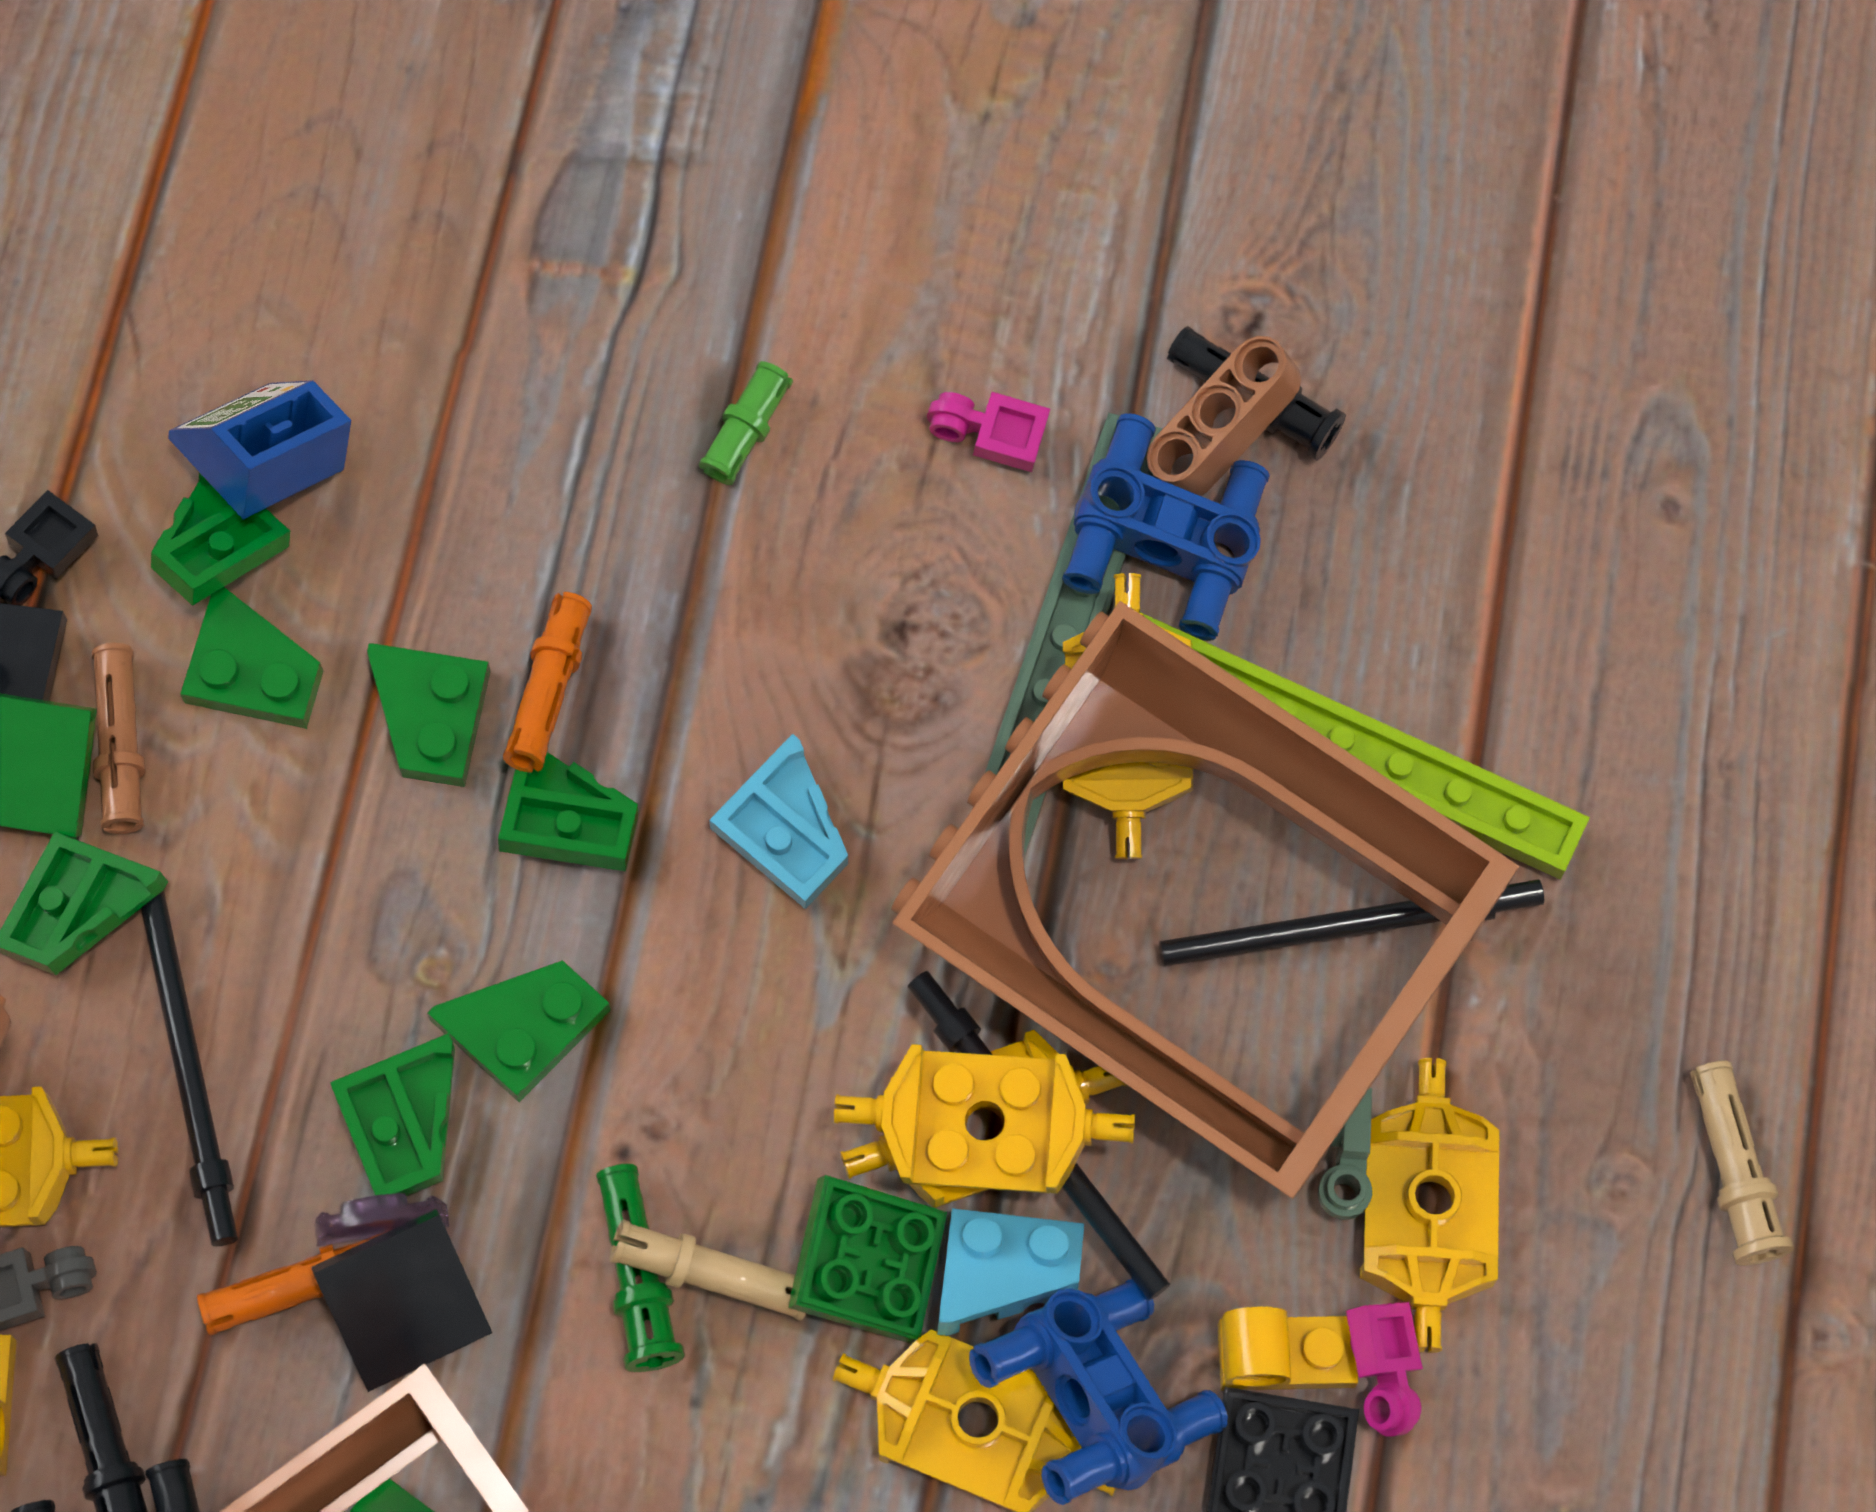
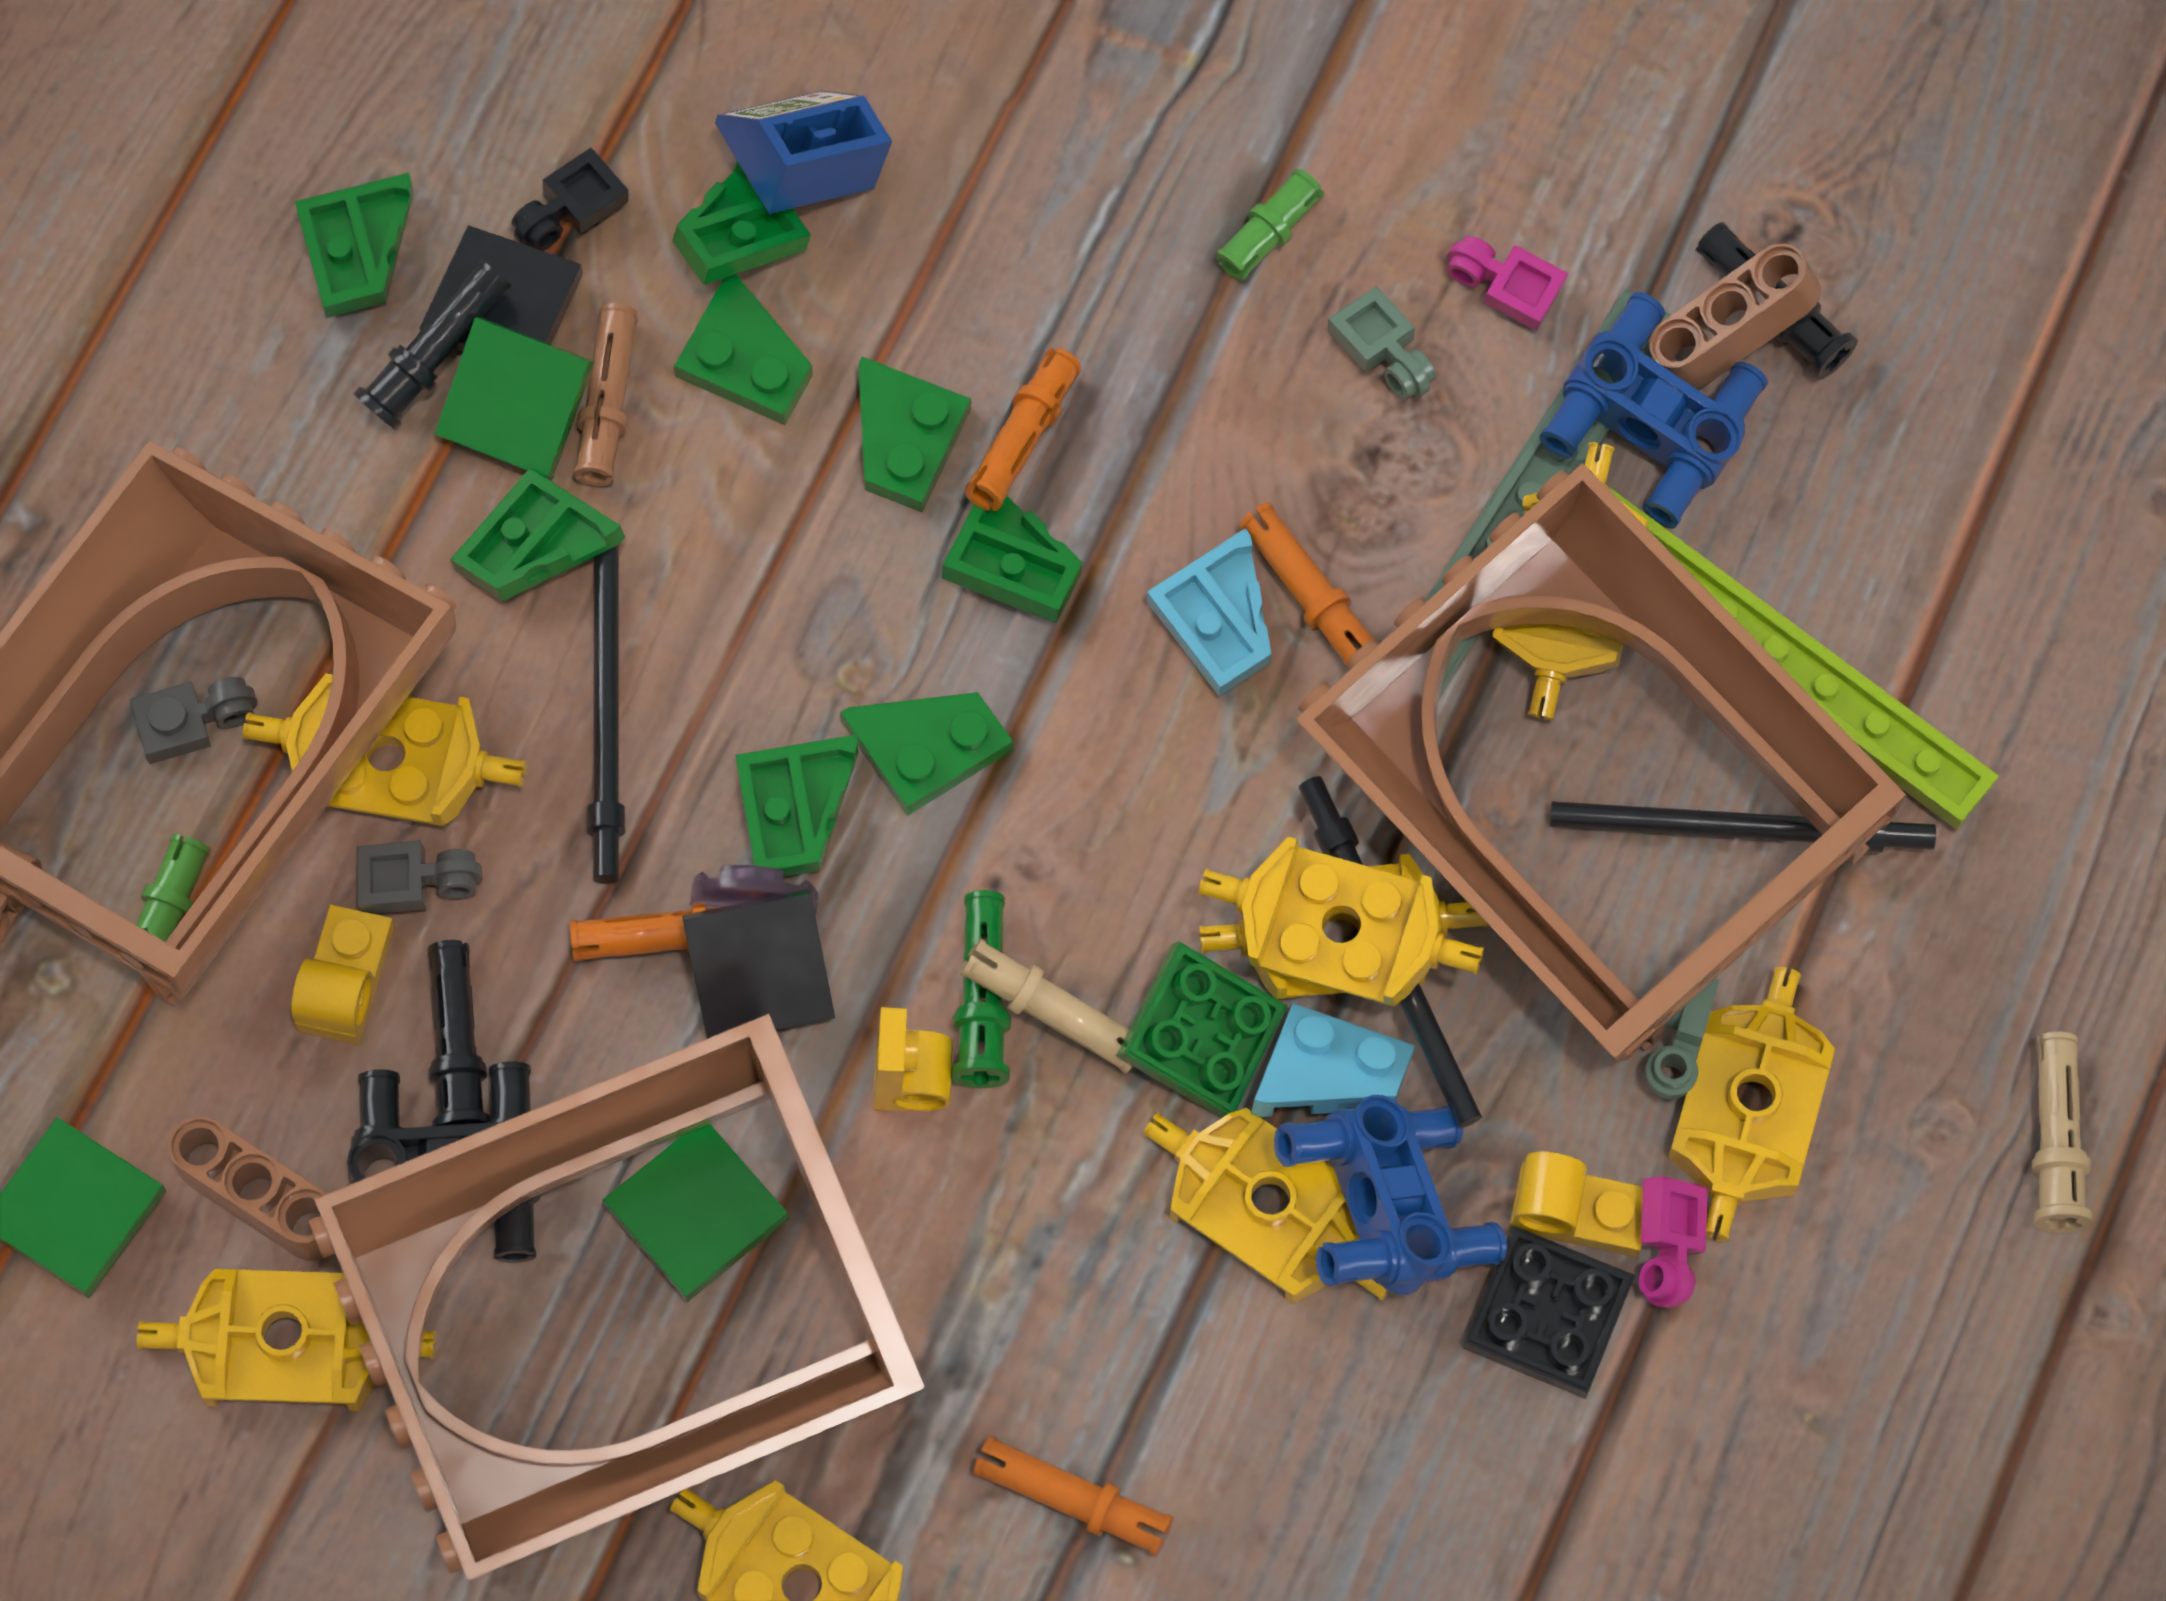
camera: 15 degrees right, 0 degrees up
(582, 1367) = (910, 1066): none -> yellow plate
(876, 506) = (1377, 331): none -> sand green plate
(889, 794) = (1325, 607): none -> orange pin

